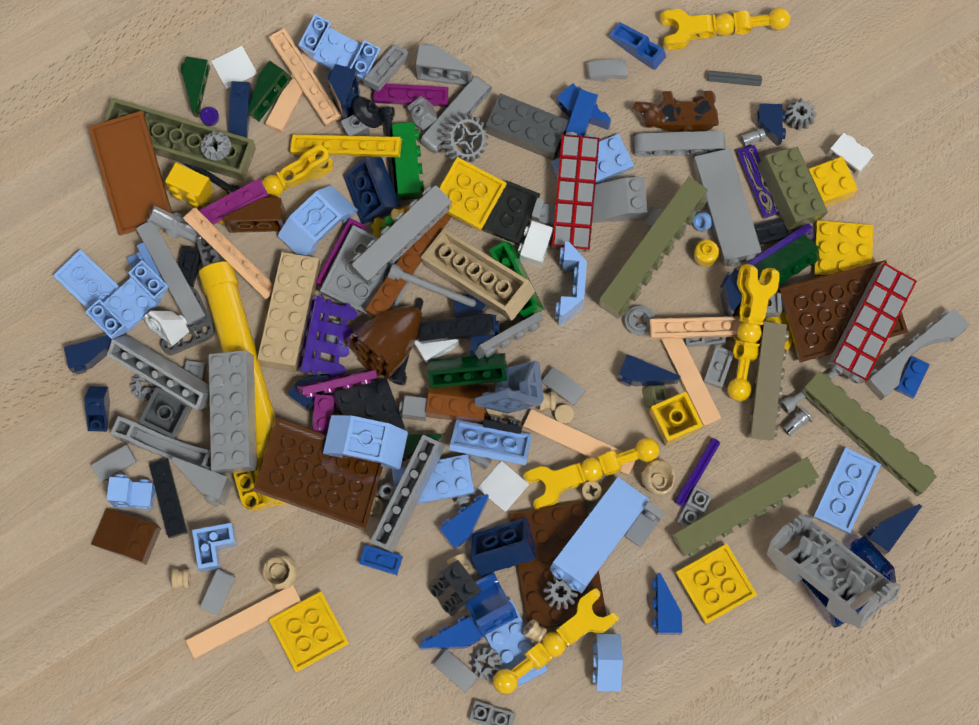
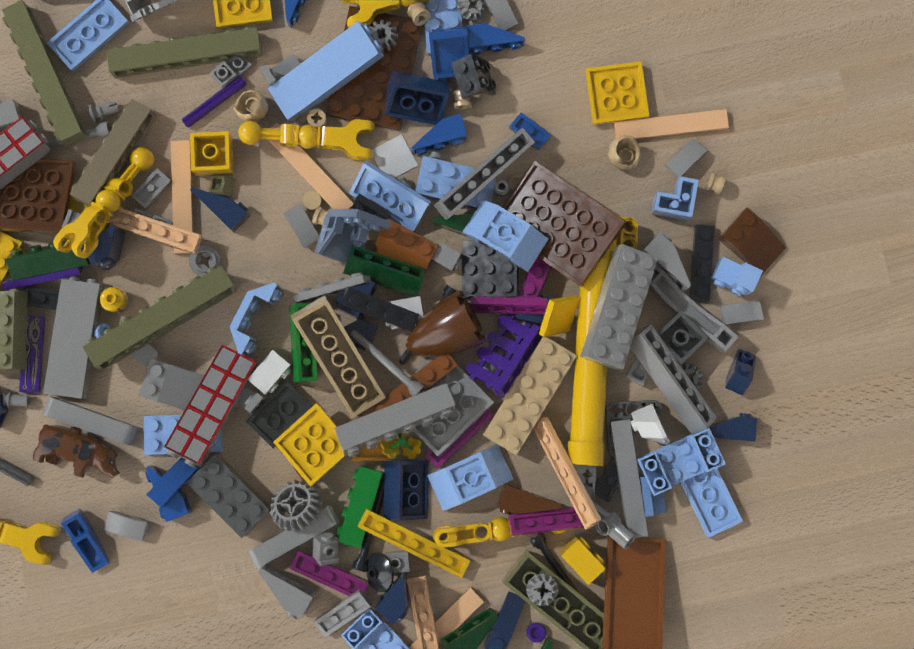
camera: 160 degrees left, 10 degrees up
(287, 389) = (559, 315): none -> yellow tile

